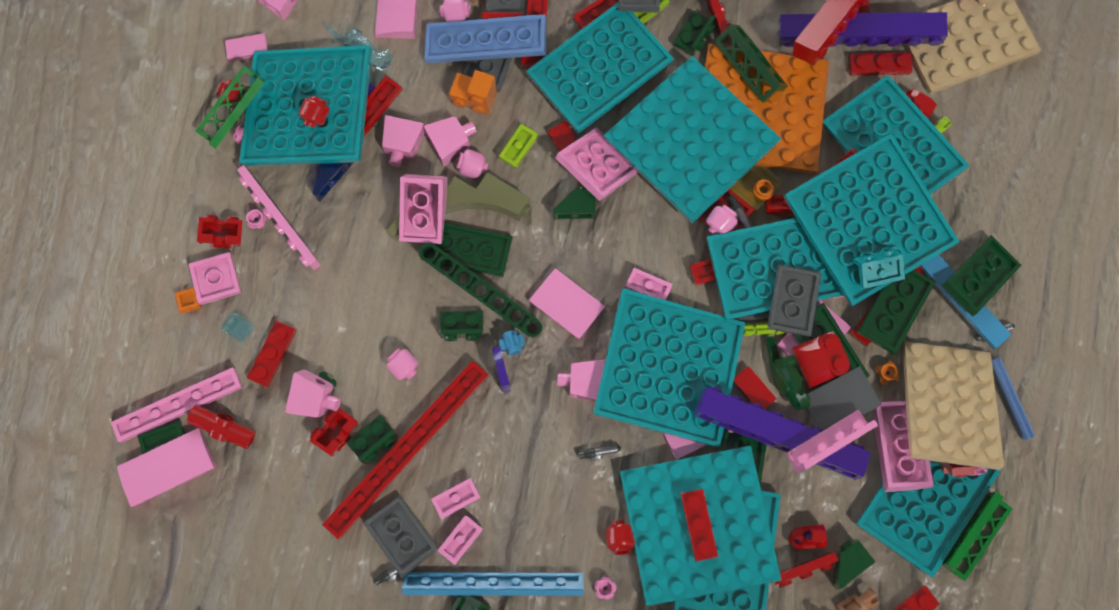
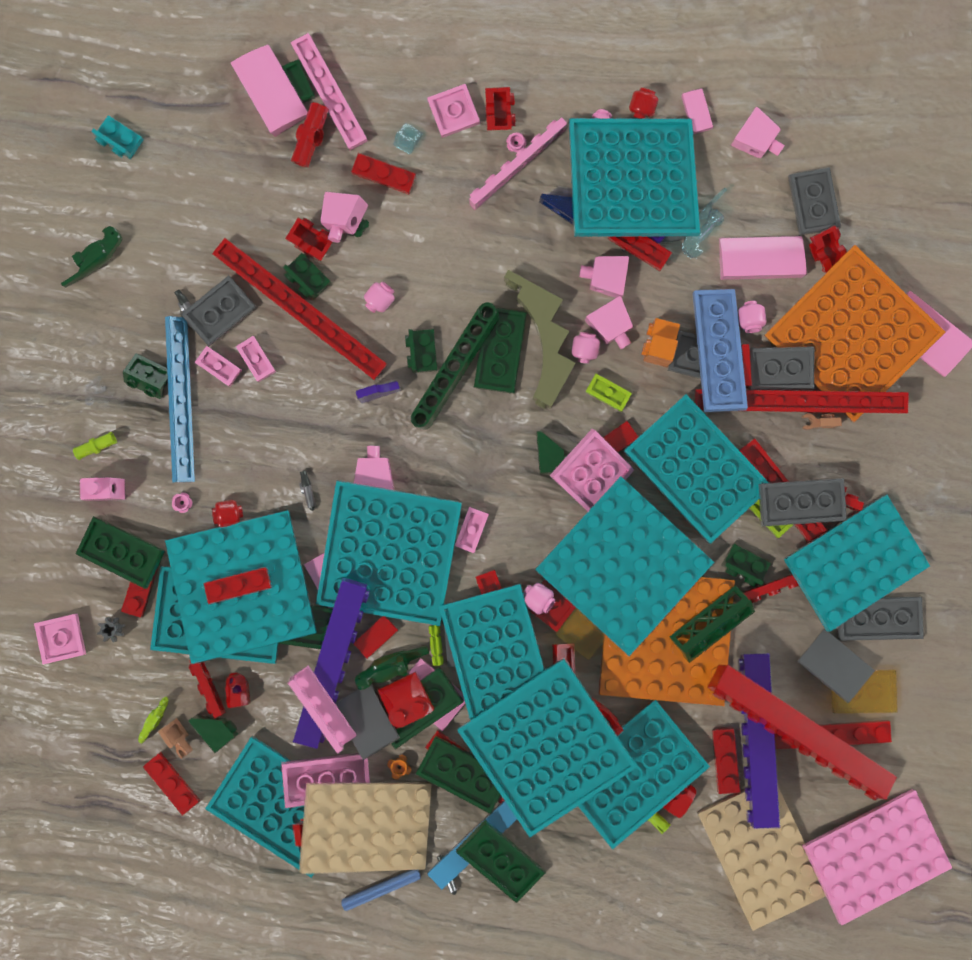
camera: 90 degrees right, 10 degrees up
(187, 300) = (430, 86): orange tile -> none
(237, 110) = (623, 110): green fence -> none
(314, 111) = (621, 184): red head -> none
(422, 208) = (531, 301): bright pink slope -> none
(512, 343) = (405, 400): dark azure gear -> none
(567, 304) = (449, 451): bright pink tile -> none
(737, 208) = (554, 613): piece -> none
(763, 184) = (583, 640): orange plate -> none
(794, 300) = (460, 672): dark grey tile -> none
(880, 267) = (494, 755): teal bracket -> none
(972, 533) = (251, 849): green fence -> none

